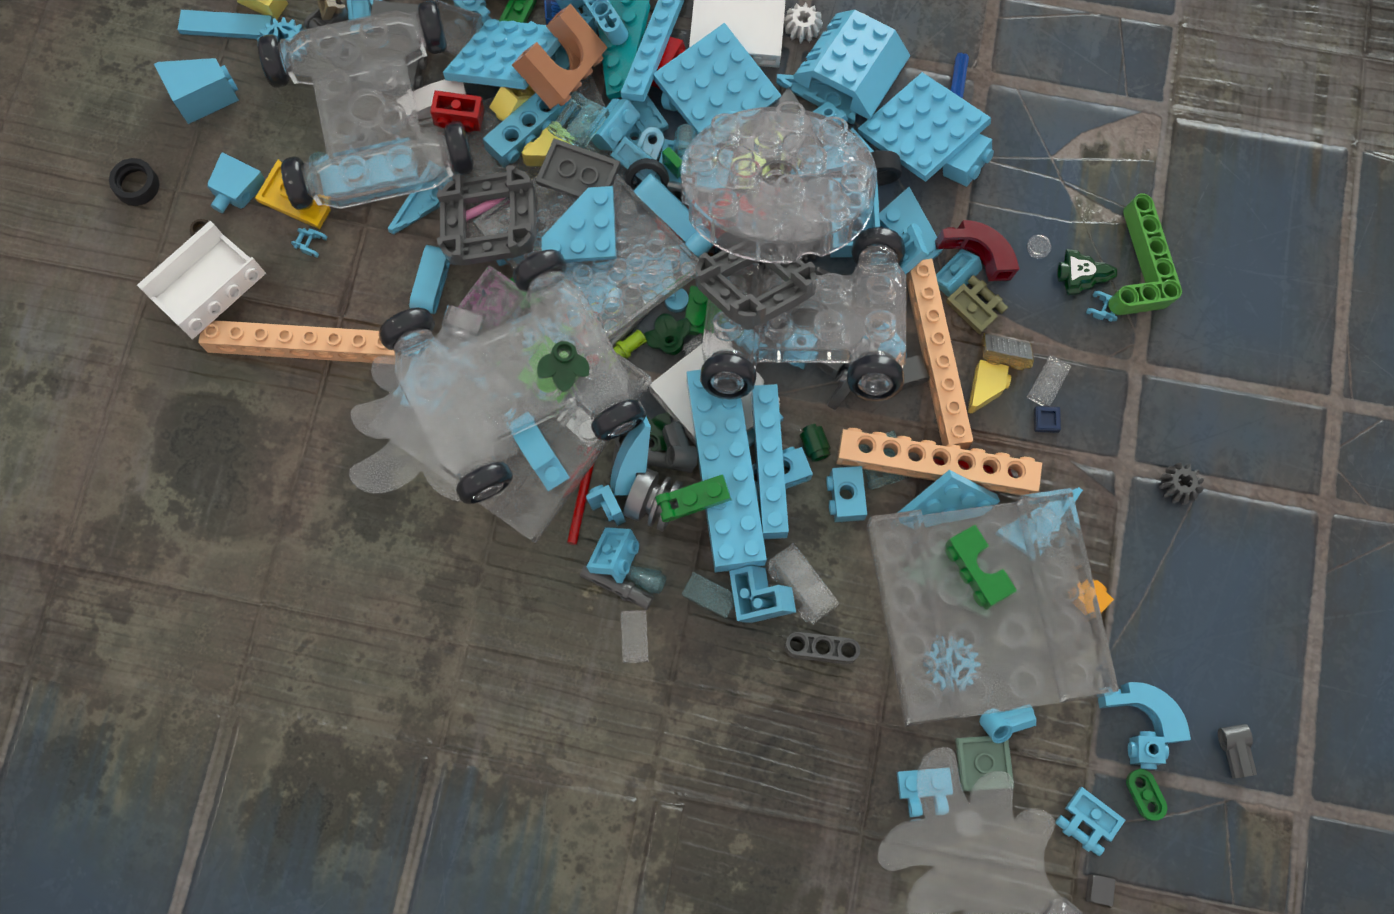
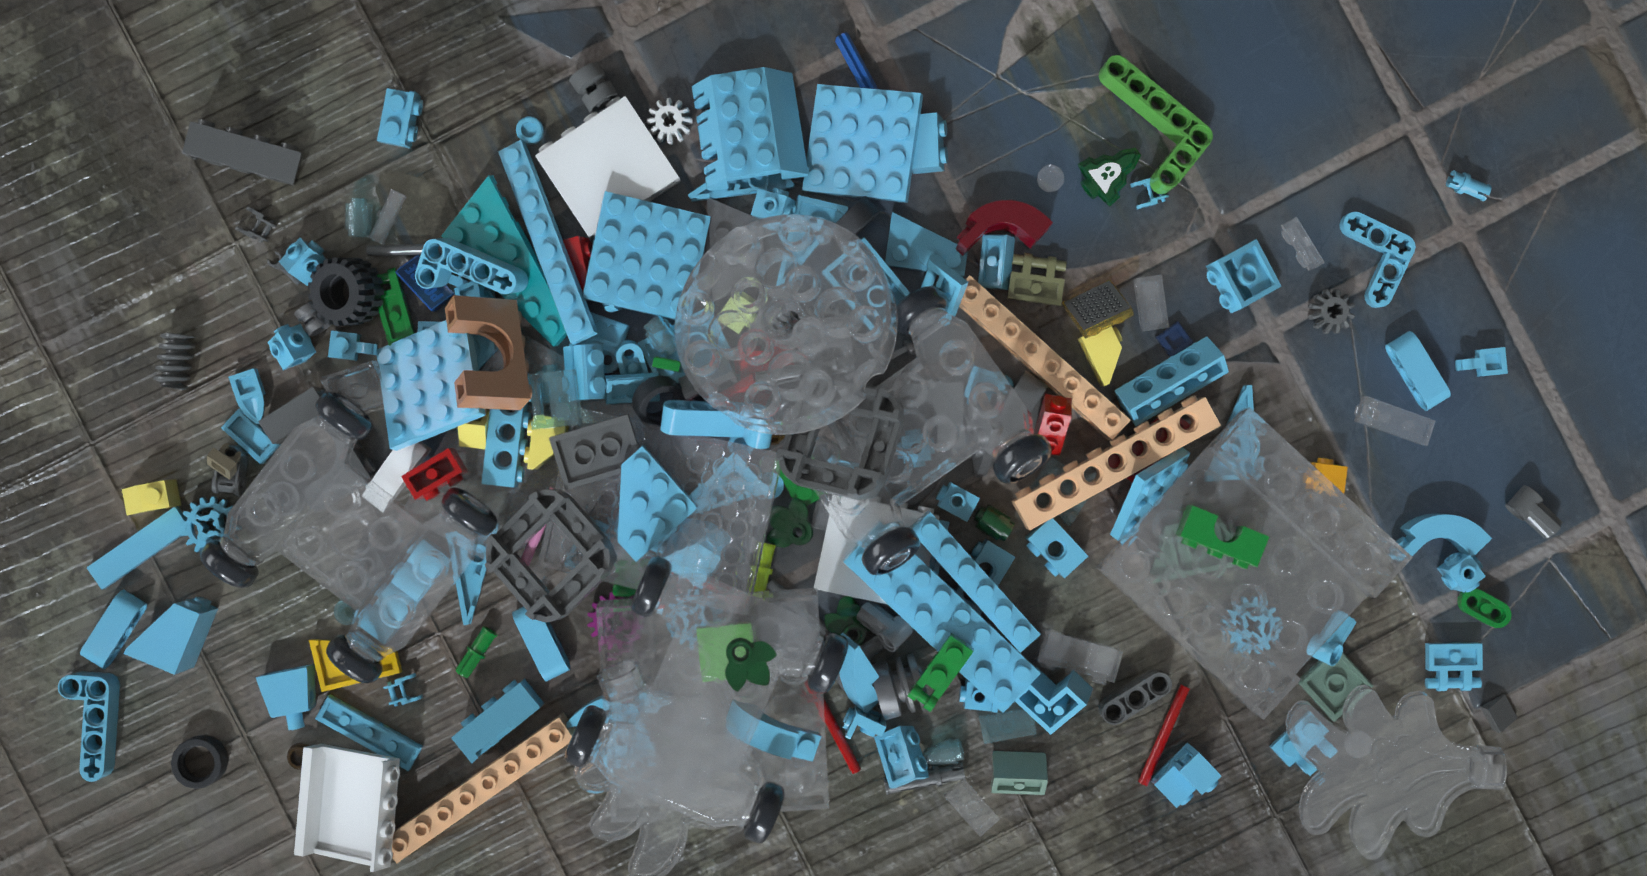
camera: 40 degrees left, 15 degrees up
(71, 127) = (95, 760): none -> medium azure beam
(142, 59) = (113, 629): none -> medium azure beam
(261, 249) = (368, 731): none -> medium azure tile
(351, 304) = (497, 719): none -> medium azure wedge
(379, 253) = (476, 652): none -> green axle
(689, 638) = (1019, 773): none -> sand green panel
(703, 564) = (967, 695): none -> medium azure brick
(801, 408) = (957, 501): none -> medium azure brick
(817, 735) = (1184, 775): none -> medium azure brick
(821, 697) = (1163, 735): none -> red bar
(913, 402) = (1054, 420): none -> red brick
(1025, 440) = (1171, 381): none -> medium azure brick
(1131, 410) = (1242, 276): none -> medium azure plate
(1174, 598) = (1394, 420): none -> clear hinge
(1193, 413) = (1306, 251): none -> clear plate
(1218, 575) = (1418, 370): none -> medium azure beam
(1255, 479) = (1389, 256): none -> medium azure beam
(1278, 609) = (1486, 361): none -> medium azure plate
(1350, 473) = (1464, 183): none -> medium azure pin

